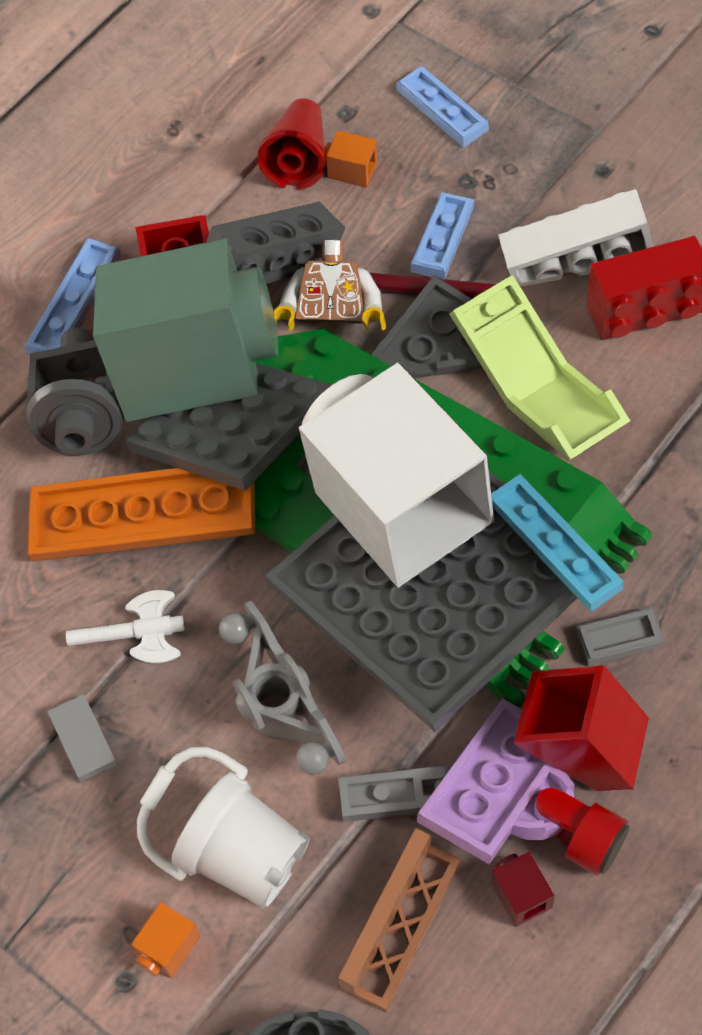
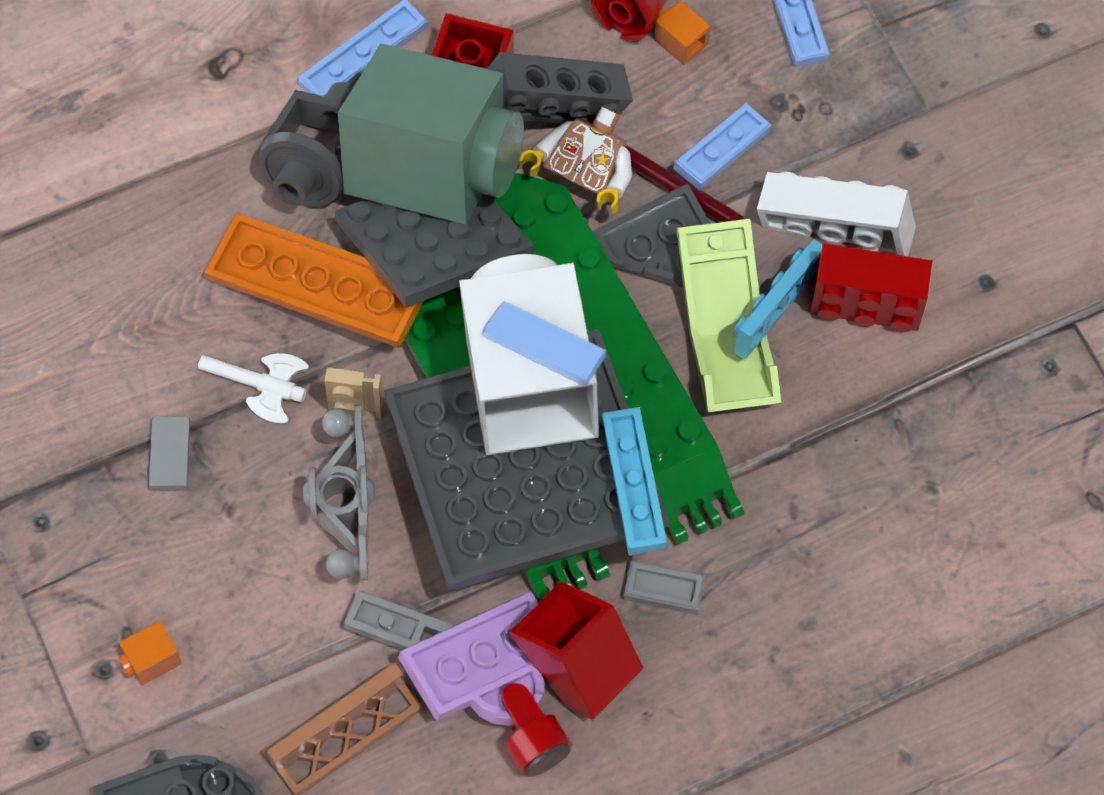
camera: 20 degrees right, 5 degrees up
(229, 591) = (351, 388): none -> tan plate
(229, 834) = (240, 592): white piece -> none
(417, 443) = (545, 343): none -> light blue tile
(521, 887) = (456, 754): dark red brick -> none
(571, 343) = (773, 305): none -> medium azure plate

